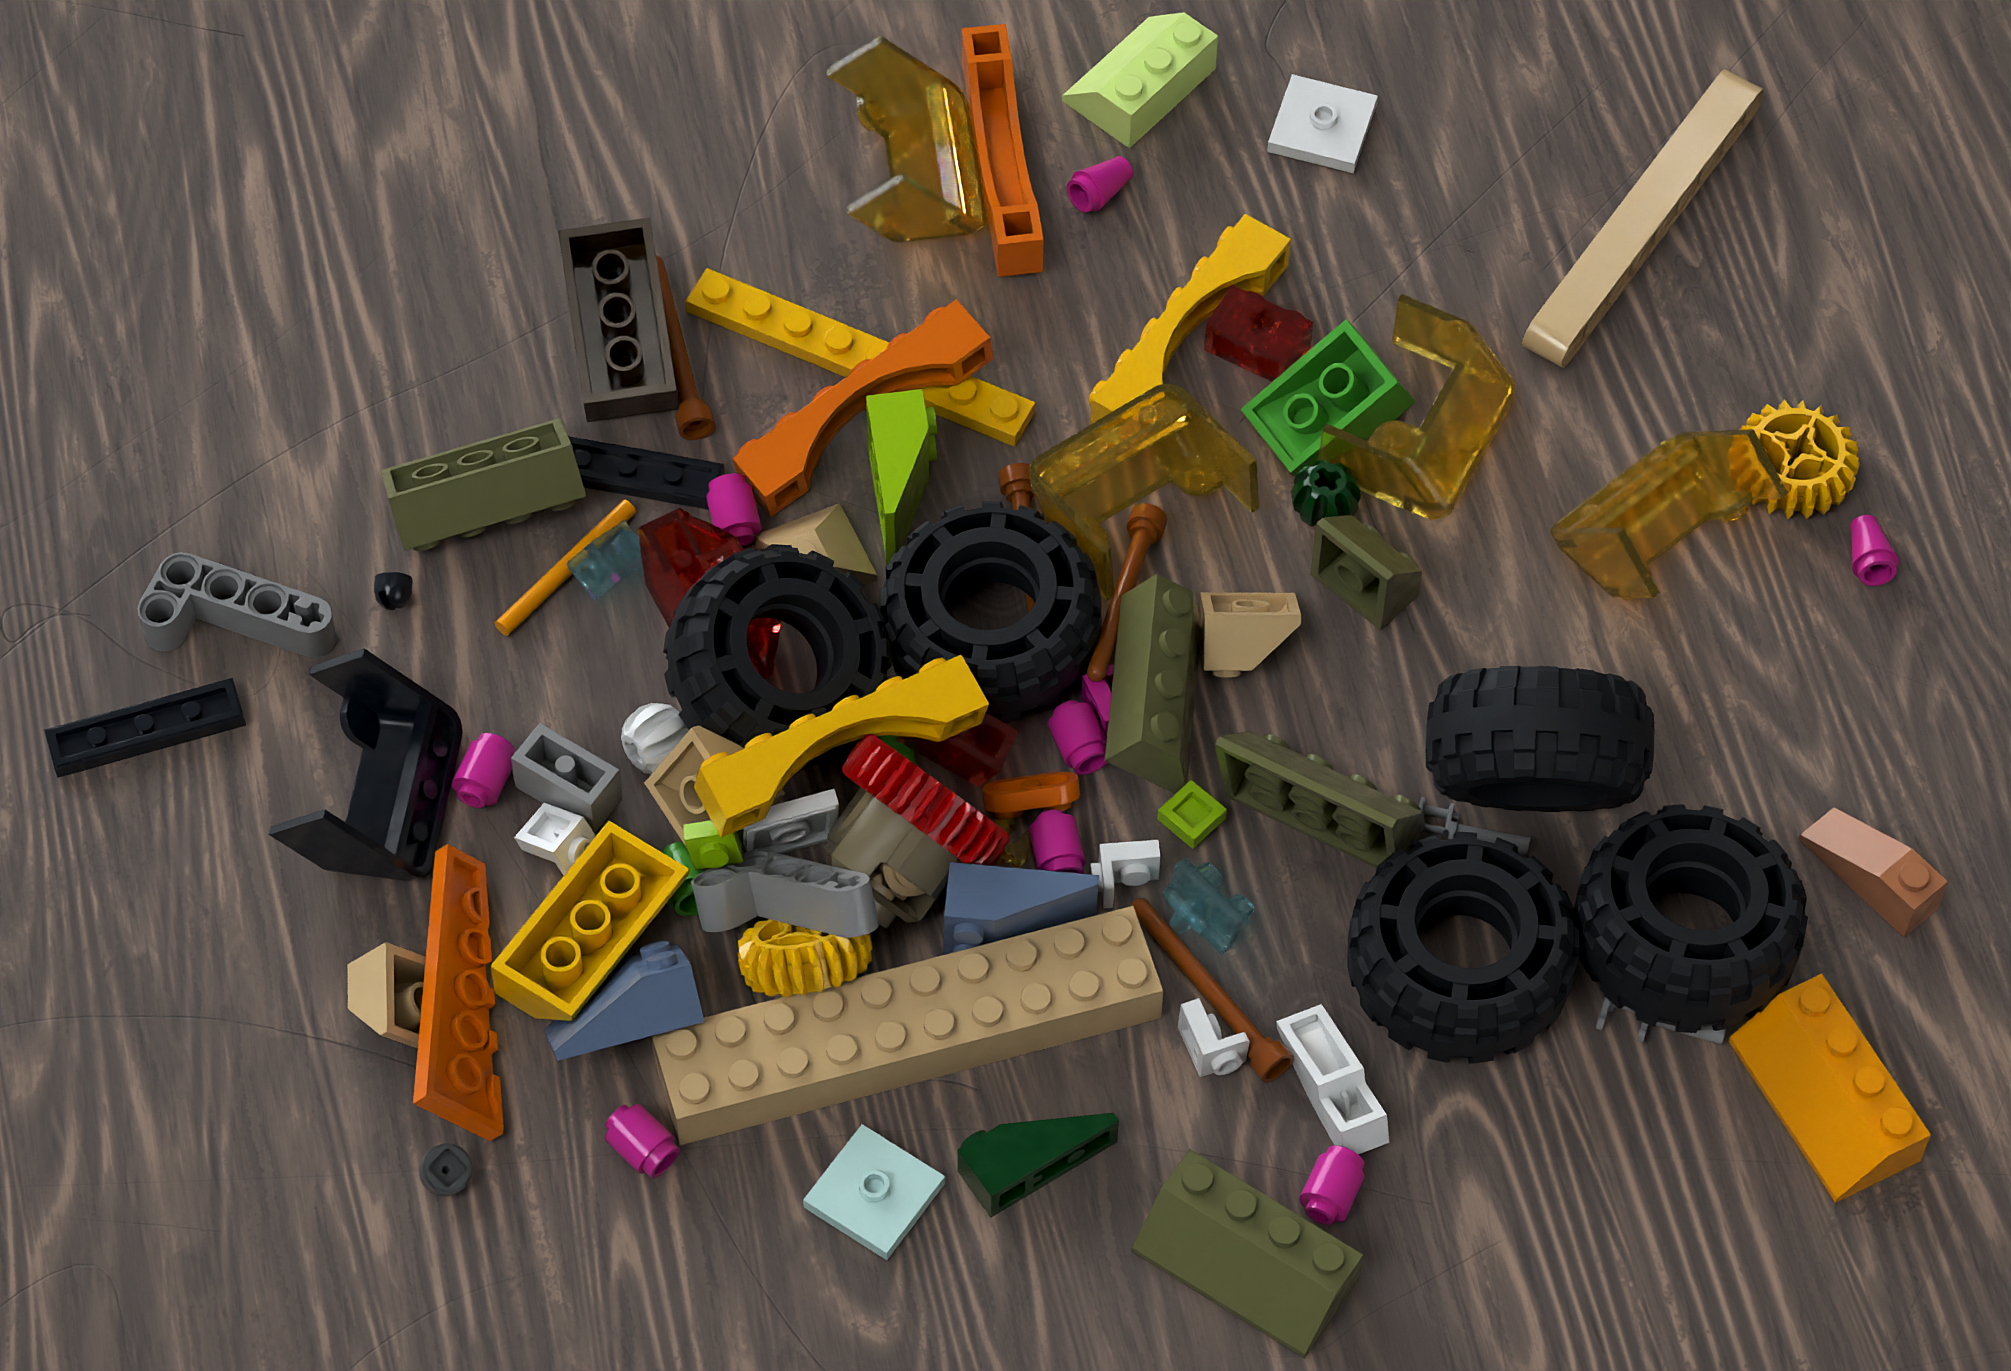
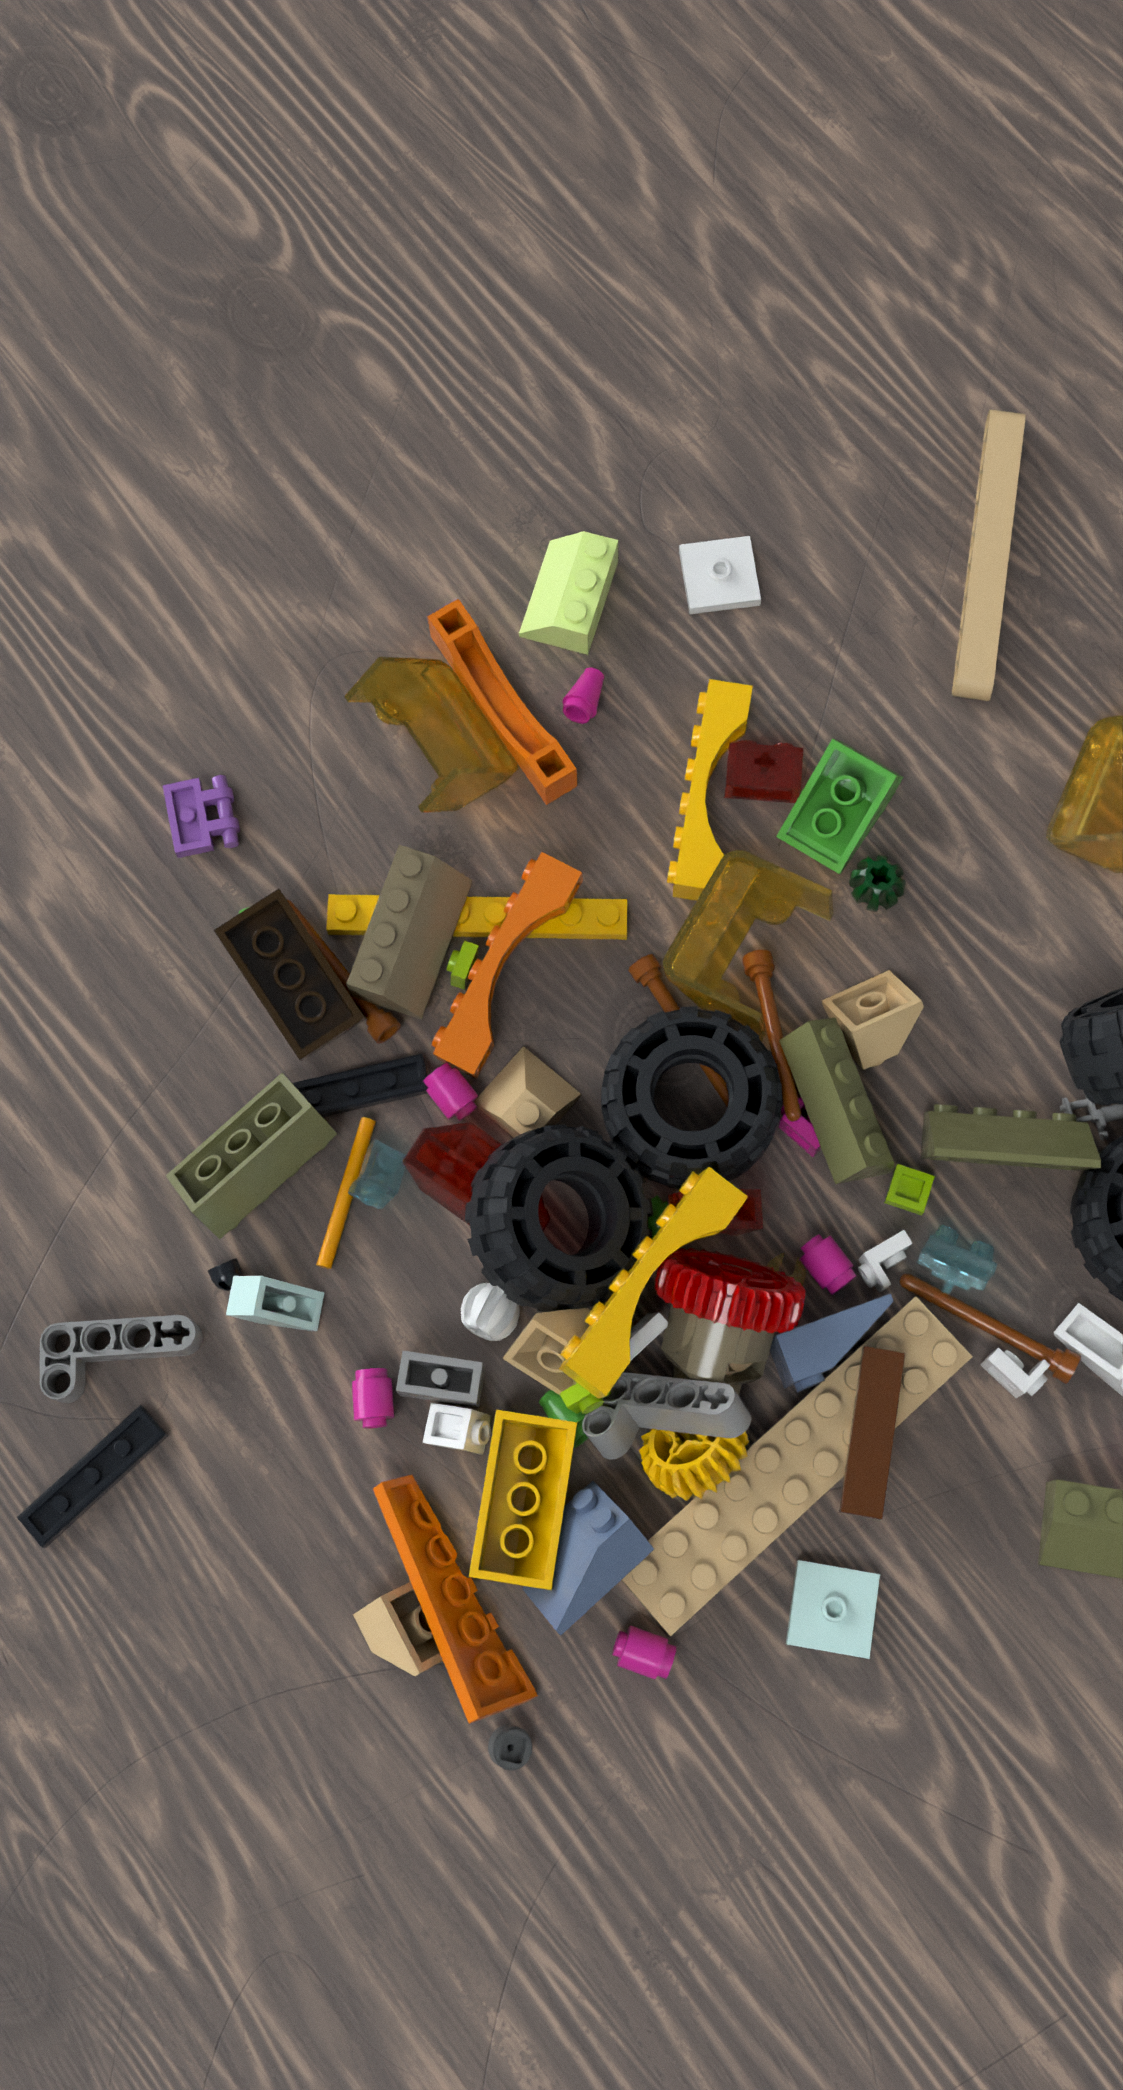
camera: 20 degrees left, 15 degrees up
(401, 777) = (312, 1440): black windscreen -> none
(429, 636) = (274, 1303): none -> light aqua slope
(596, 135) = (189, 818): none -> medium lavender plate
(770, 330) = (409, 933): none -> dark tan slope
(812, 384) = (461, 964): none -> lime plate
(899, 456) = (552, 990): lime slope -> none
(1005, 1008) = (872, 1433): none -> reddish brown tile
(1027, 1155) = (928, 1536): dark green slope -> none
(1045, 790) = (786, 1226): orange plate -> none
(1079, 736) = (797, 1164): dark pink brick -> none
(1363, 569) = (937, 933): olive slope -> none
(1431, 464) = (925, 833): clear yellow windscreen -> none

